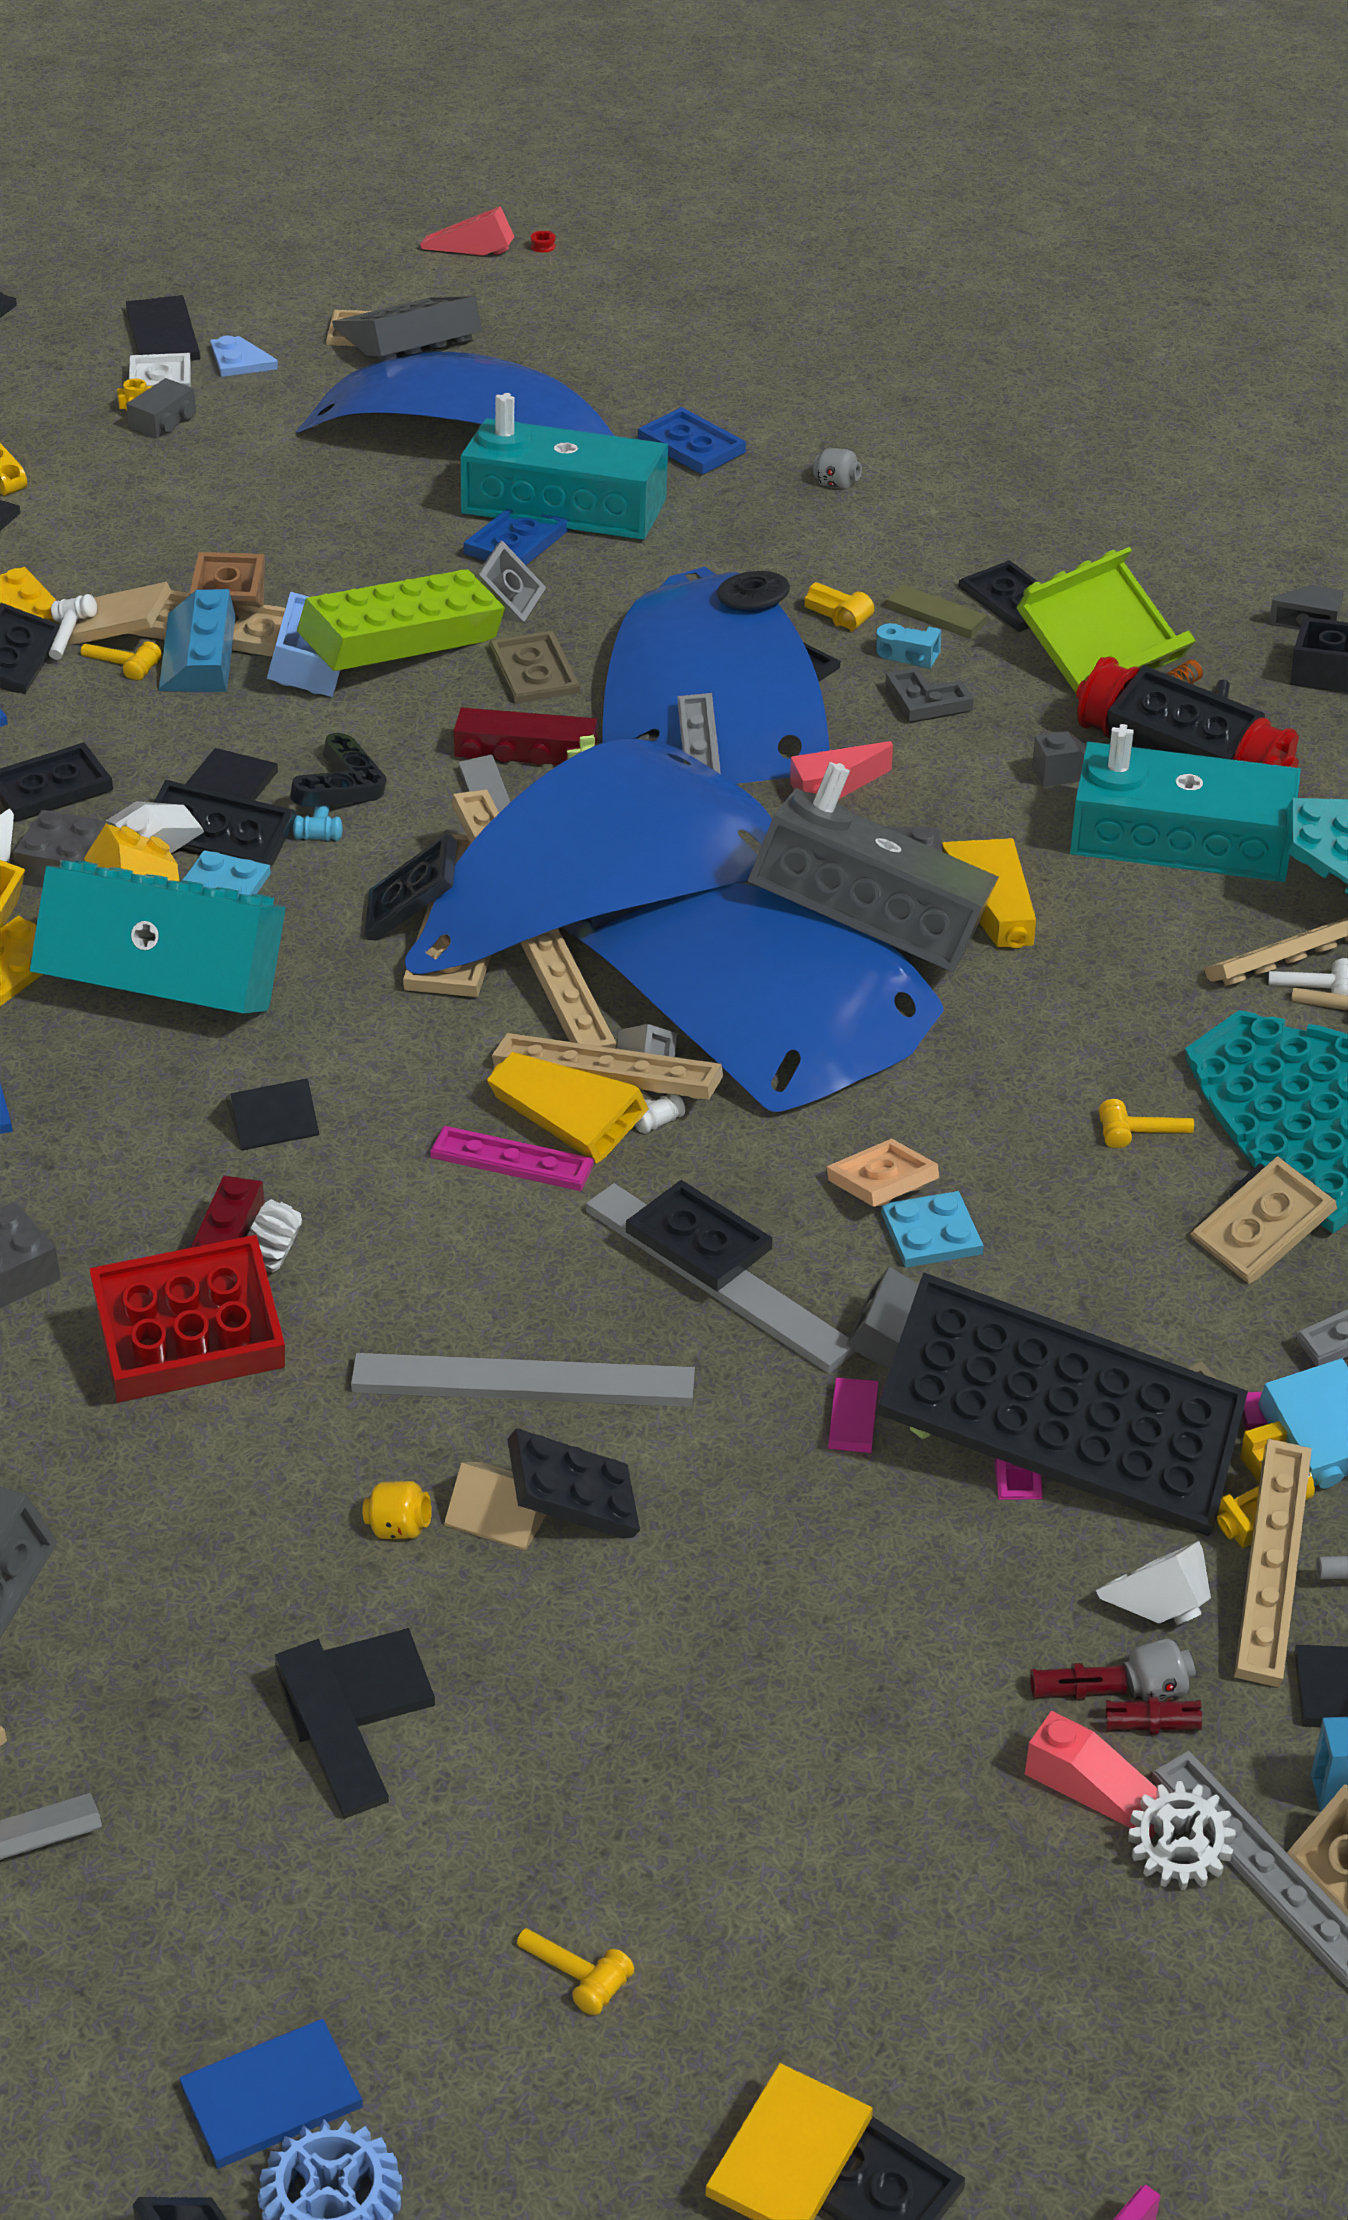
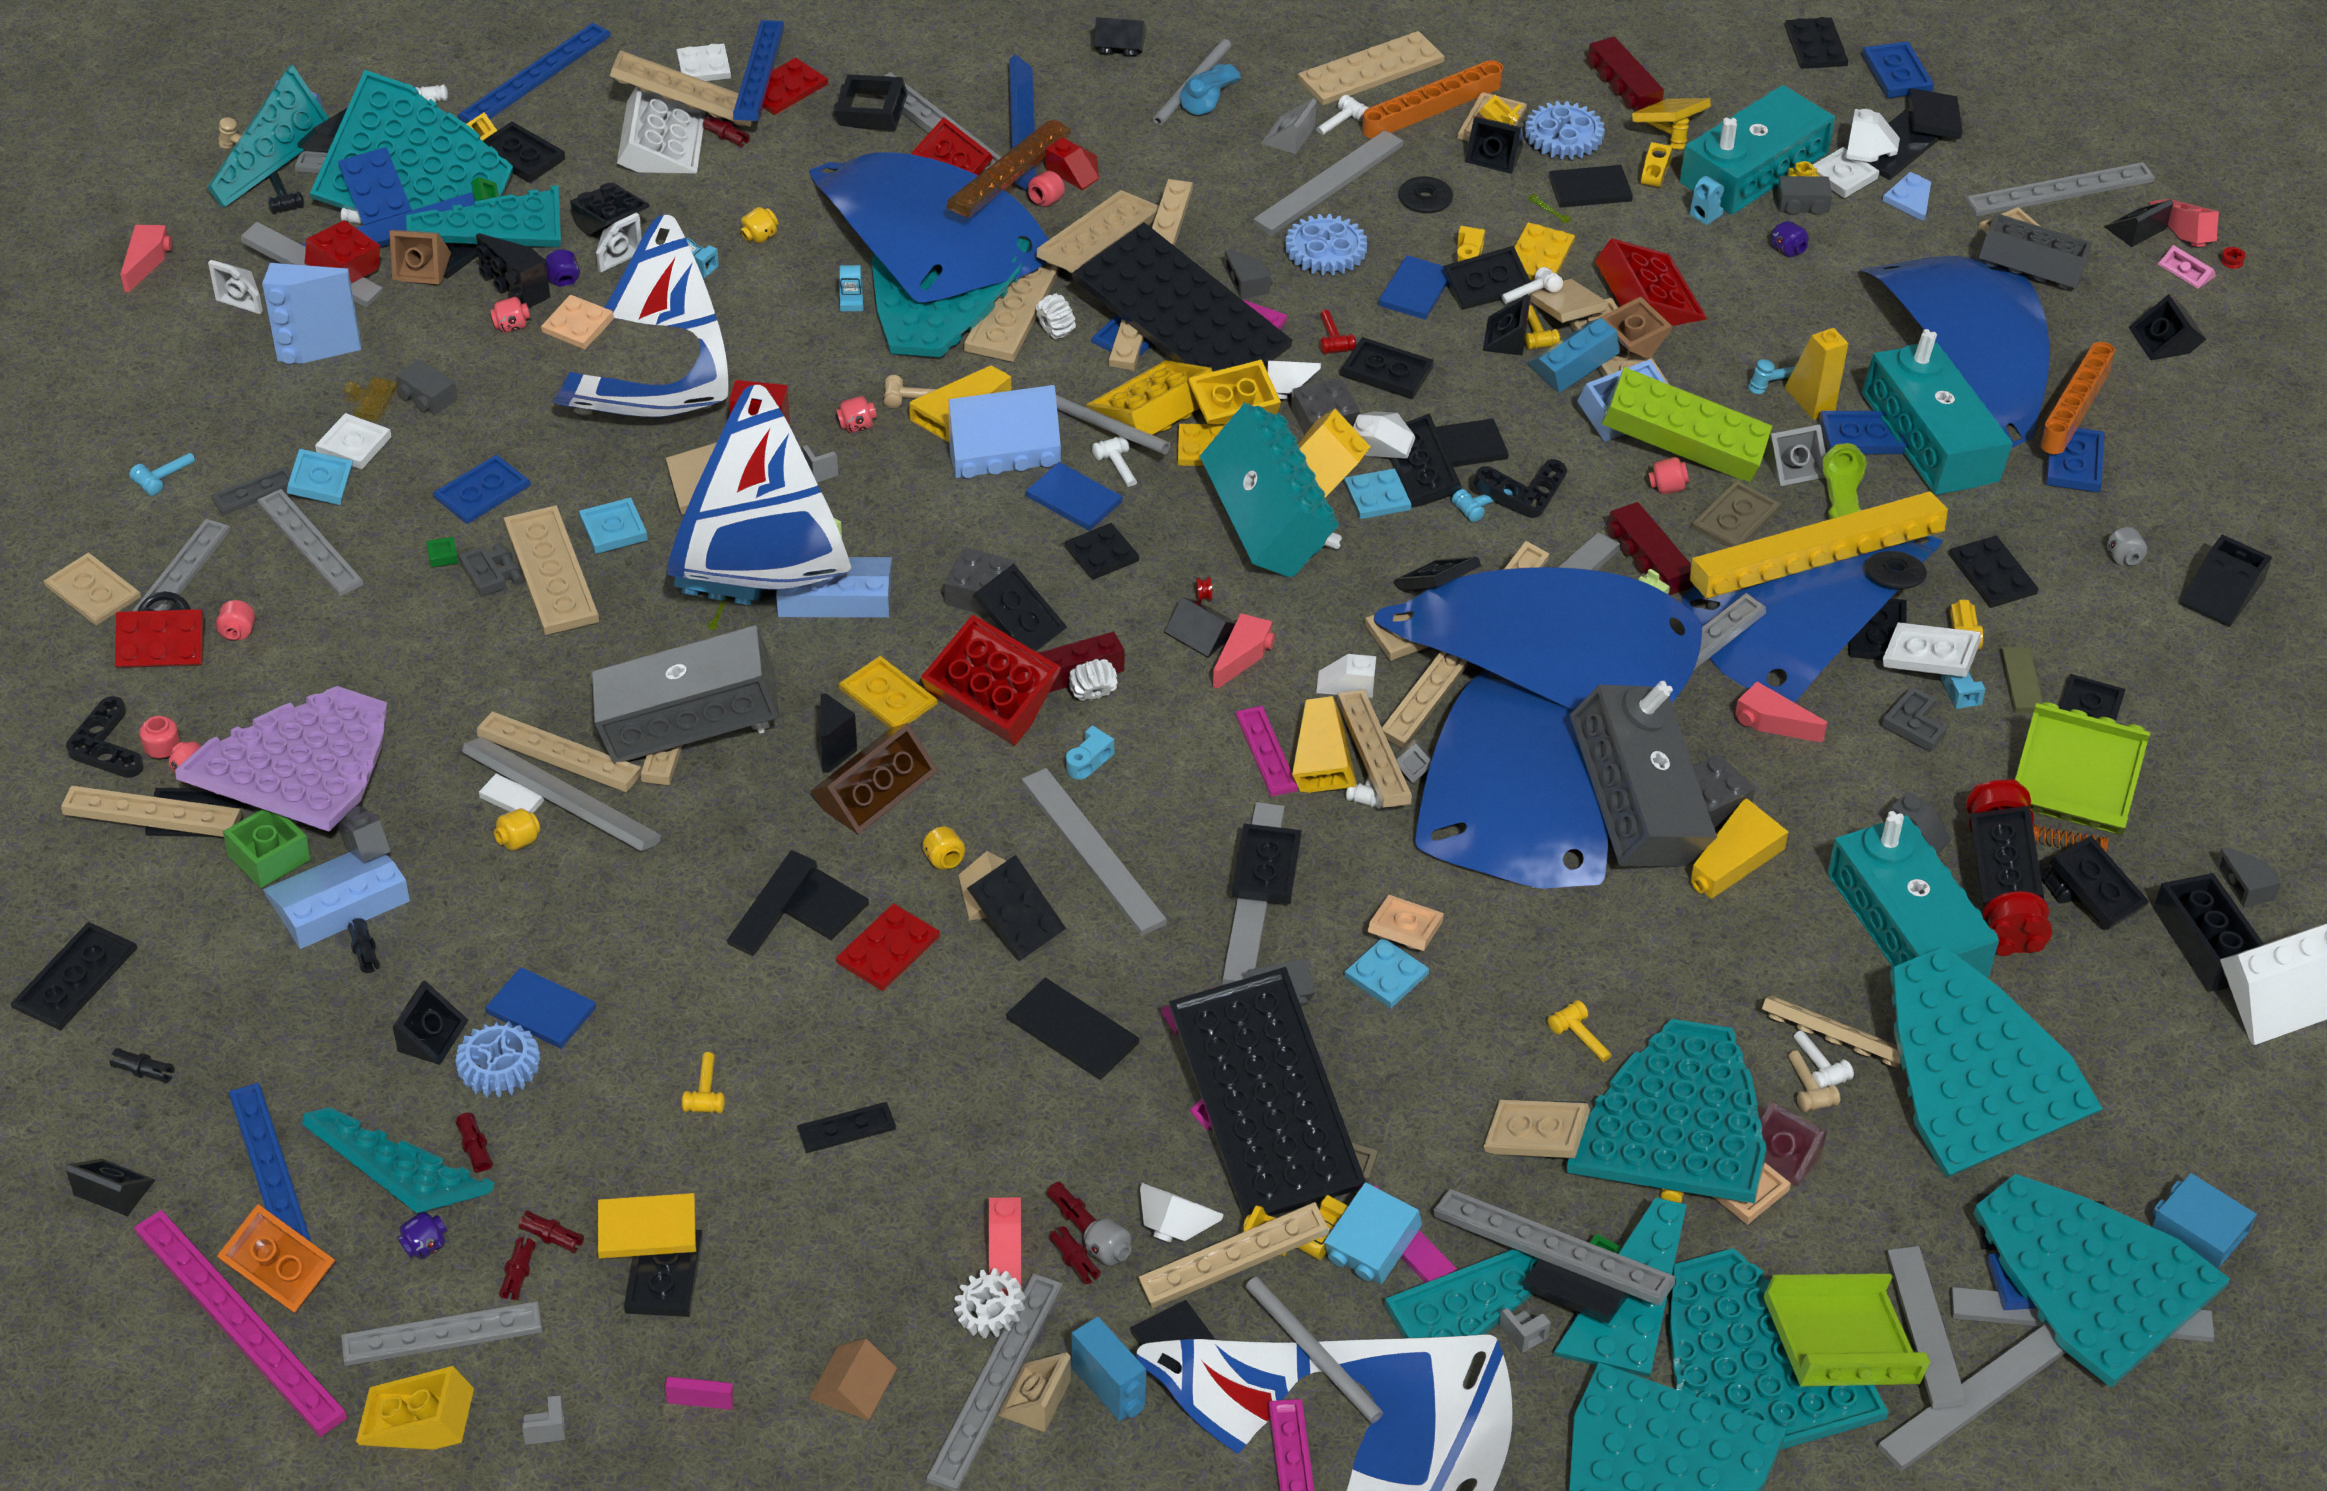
camera: 55 degrees right, 5 degrees up
(60, 1135) = (1101, 551): none -> black plate
(67, 279) = (1897, 68): none -> blue plate
(70, 398) = (1758, 147): none -> teal piece
(79, 1440) = (887, 693): none -> yellow tile
(85, 1238) = (1019, 609): none -> black tile
(97, 459) = (1707, 198): none -> medium azure leg
(103, 669) = (1508, 328): none -> black slope
(108, 1512) = (836, 733): none -> black slope
(142, 331) = (1871, 137): none -> white slope
(144, 557) = (1648, 274): none -> red slope
(156, 288) = (1935, 113): none -> black tile
(208, 446) = (1789, 239): none -> dark purple head
(215, 1519) = (875, 779): none -> reddish brown slope
(219, 1080) = (1204, 589): none -> red bush
(338, 281) = (2059, 189): none -> light grey tile
(341, 1089) = (1244, 648): none -> coral slope
(375, 550) = (1764, 373): none -> medium azure piece
(378, 1304) = (1090, 754): none -> medium azure leg
(436, 507) = (1819, 373): none -> yellow slope
(438, 675) = (1669, 476): none -> coral head
(440, 258) = (2142, 223): none -> black slope
(471, 1032) = (1348, 674): none -> white slope
(502, 1651) = (887, 947): none -> red plate
(524, 267) = (2187, 267): none -> bright pink slope
(562, 571) = (1844, 470): none -> lime hair
(595, 312) = (2167, 330): none -> black slope
(629, 395) = (2077, 398): none -> orange beam
(670, 619) = (1818, 544): none -> yellow brick
(767, 1847) = (846, 1127): none -> black tile
(787, 1539) = (1072, 1028): none -> black tile
(789, 556) = (1993, 571): none -> black plate
(862, 631) = (1932, 649): none -> white plate
(940, 436) = (2227, 580): none -> black slope
(1197, 2051) = (855, 1379): none -> medium nougat slope
(1254, 689) = (2099, 882): none -> black plate

